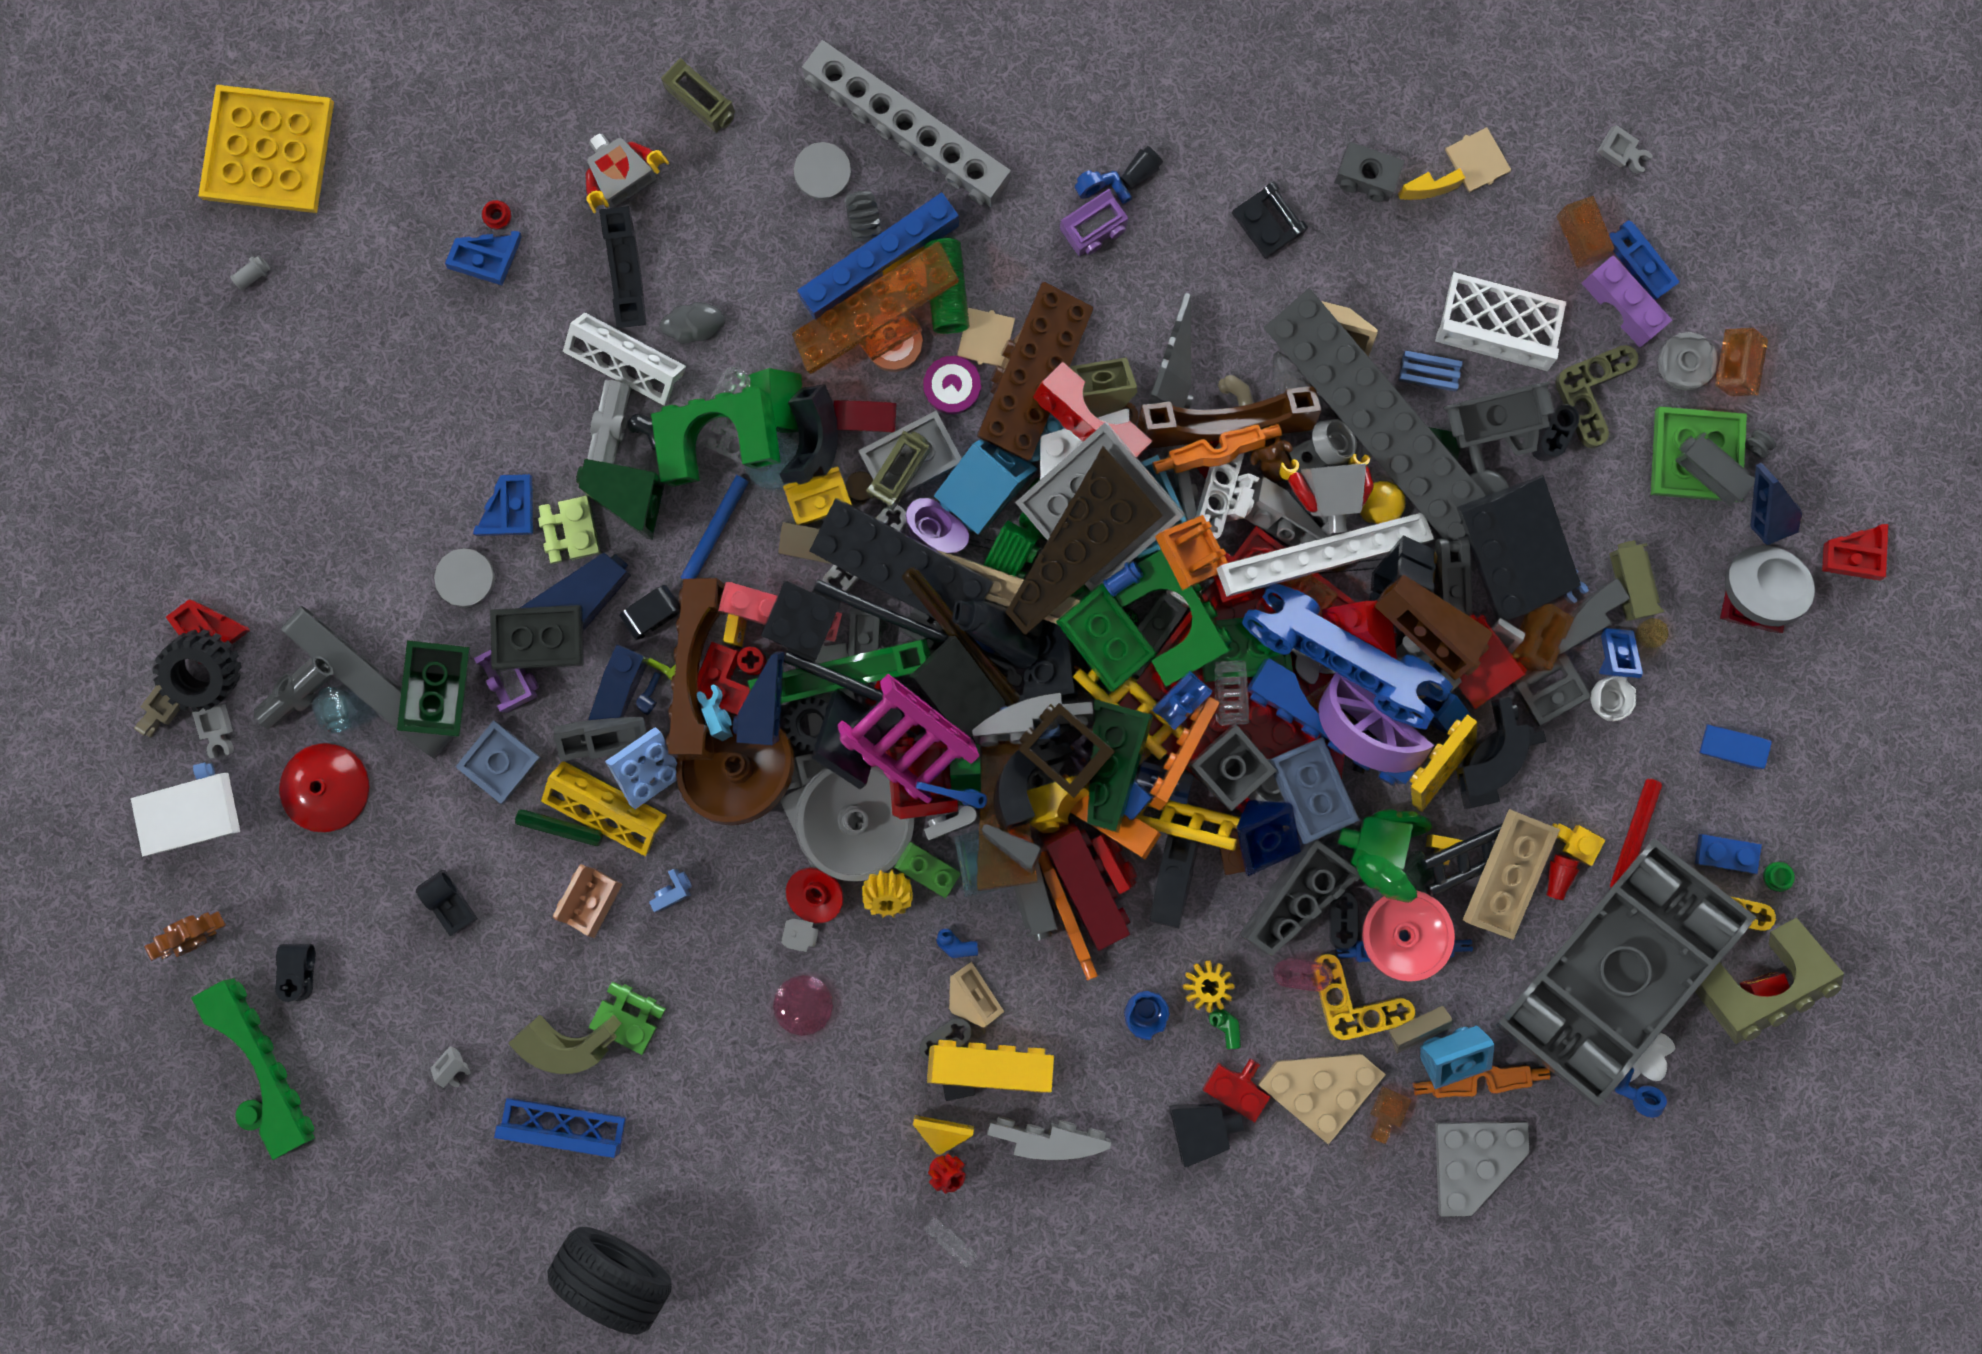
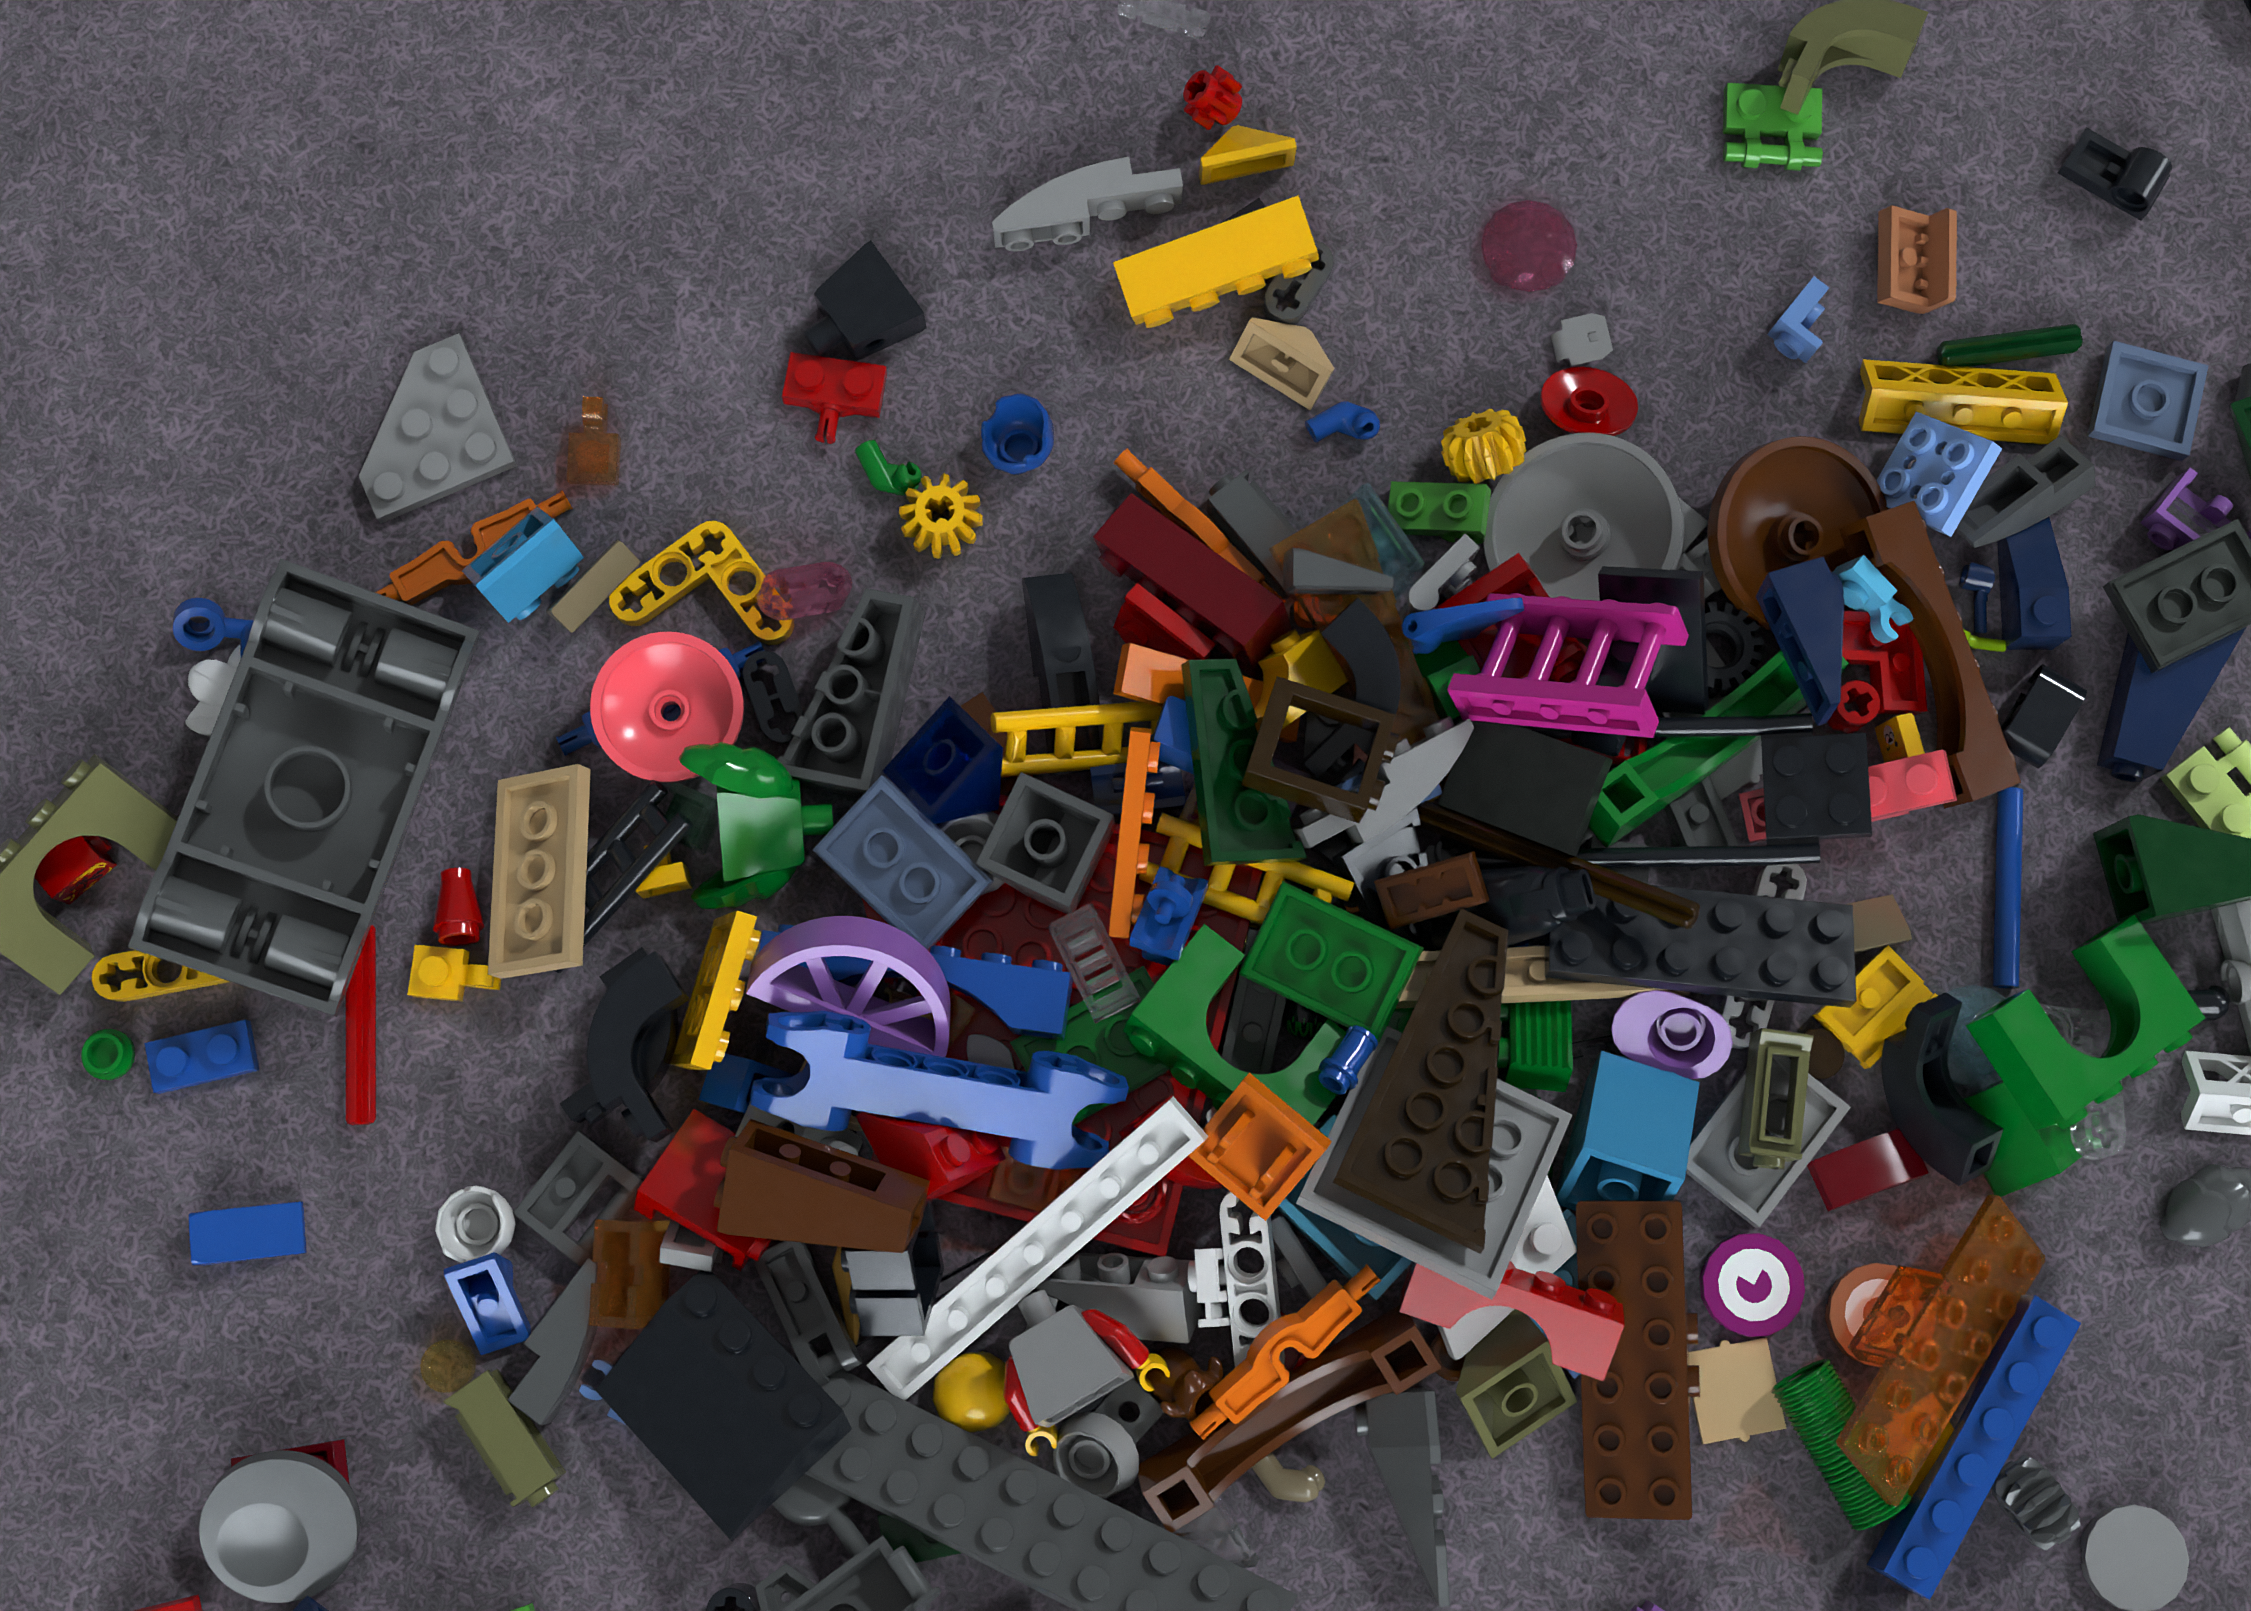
camera: 155 degrees right, 5 degrees down
(1034, 652) = (1431, 890): none -> reddish brown plate
(1322, 1089) = (707, 441): tan plate -> none

